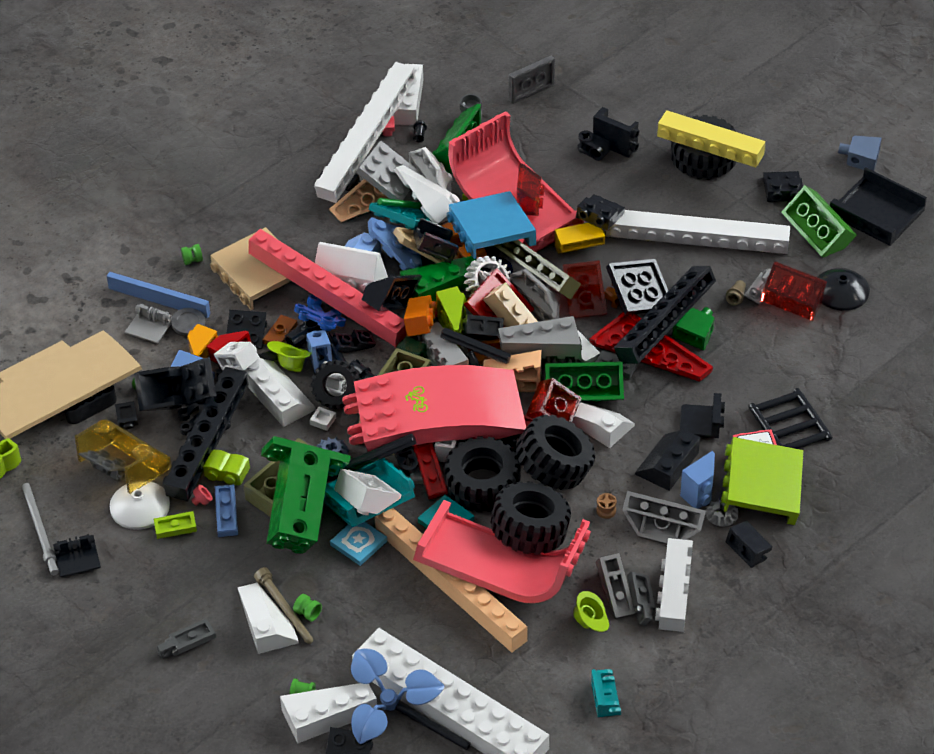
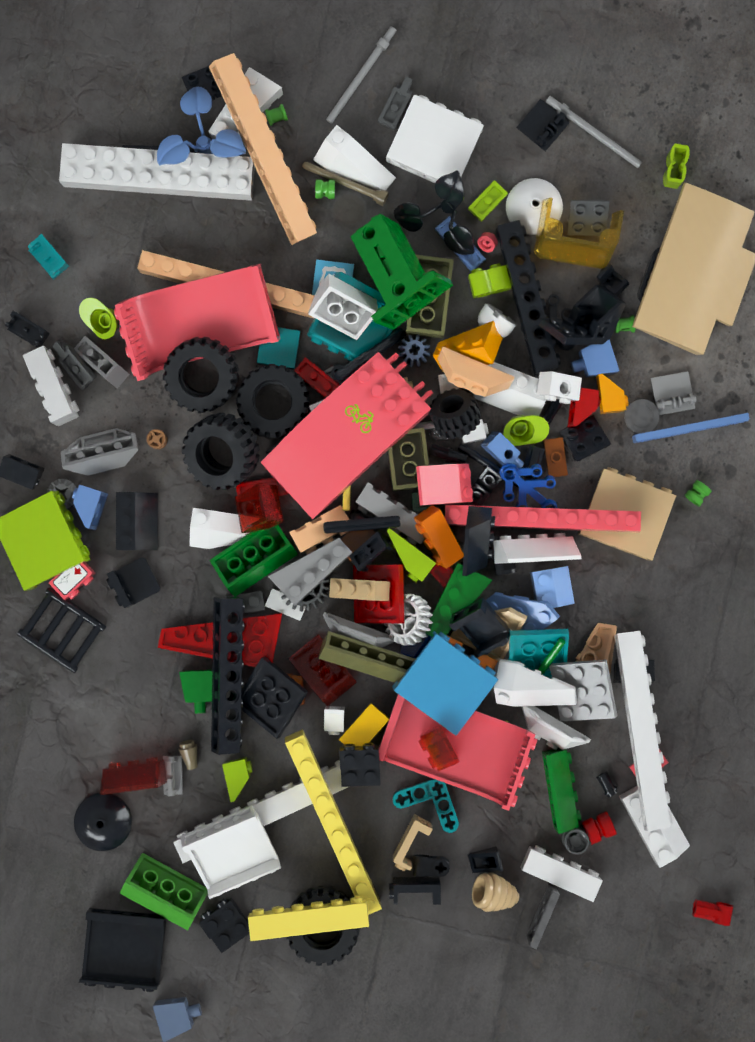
camera: 145 degrees right, 40 degrees up
(158, 694) = (382, 45): none -> light grey bar
(179, 587) = (433, 140): none -> white panel
(210, 535) = (452, 191): none -> black plant
(247, 433) = (503, 324): none -> white cylinder
(286, 418) = (478, 344): none -> light orange wedge
(300, 391) = (473, 374): none -> light nougat wedge
(337, 652) = (262, 148): none -> light nougat brick
(383, 343) = (444, 484): none -> coral slope
(403, 33) = (717, 912): none -> red piece
(446, 108) = (600, 827): none -> red wheel
(497, 98) = (560, 873): none -> white brick
(546, 129) = (485, 861): none -> black slope
(558, 107) = (493, 893): none -> tan piece
(559, 185) = (429, 794): none -> teal beam
(596, 161) = (415, 825): none -> tan panel
(597, 251) = (334, 720): none -> white slope
(648, 194) = (332, 819): none -> light yellow brick
(666, 647) = (27, 330): none -> black hinge
(708, 256) = (236, 775): none -> lime slope
(745, 211) = (231, 851): none -> white panel

